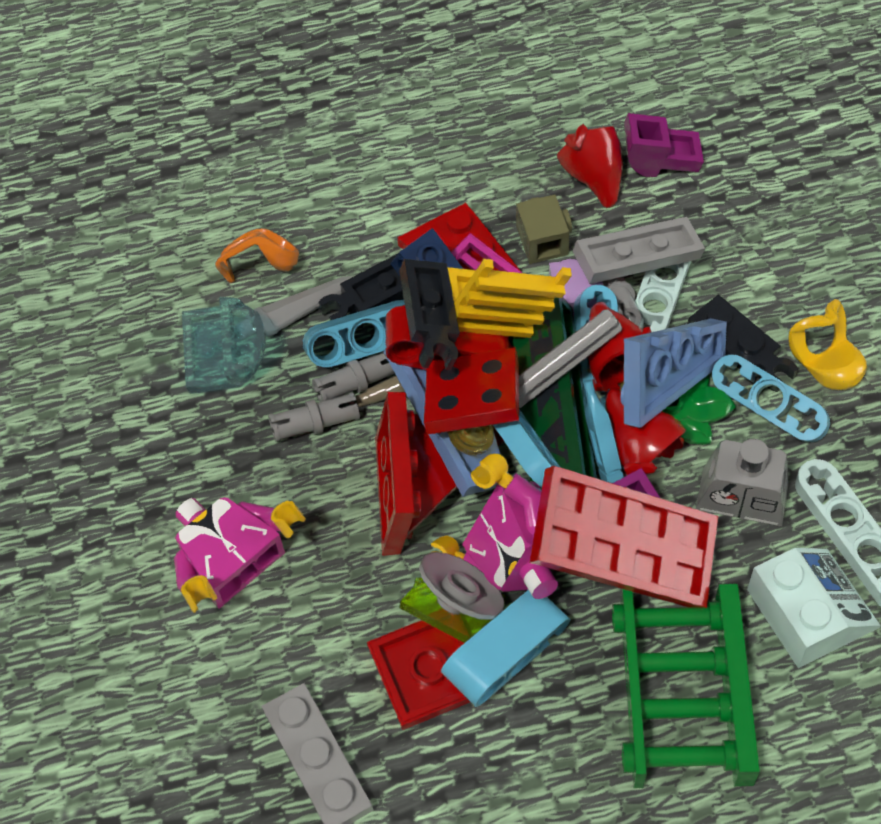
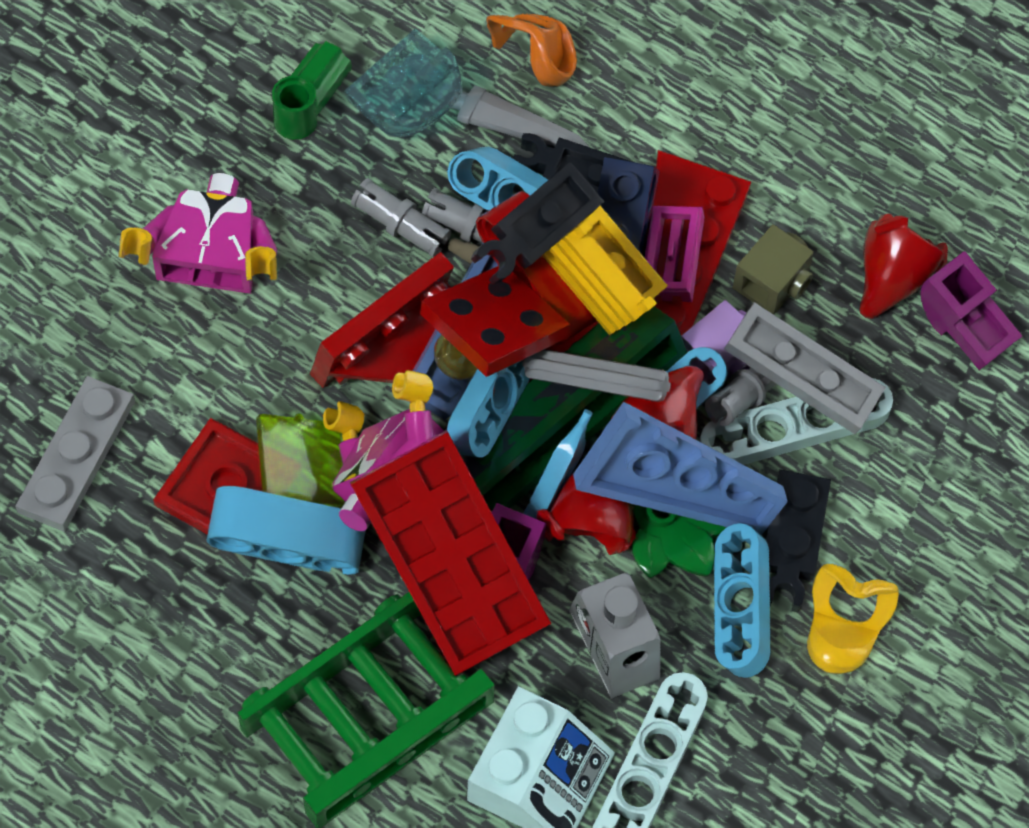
camera: 45 degrees right, 5 degrees up
(163, 409) = (309, 88): none -> green piece
(460, 586) = (306, 449): light grey dish -> none

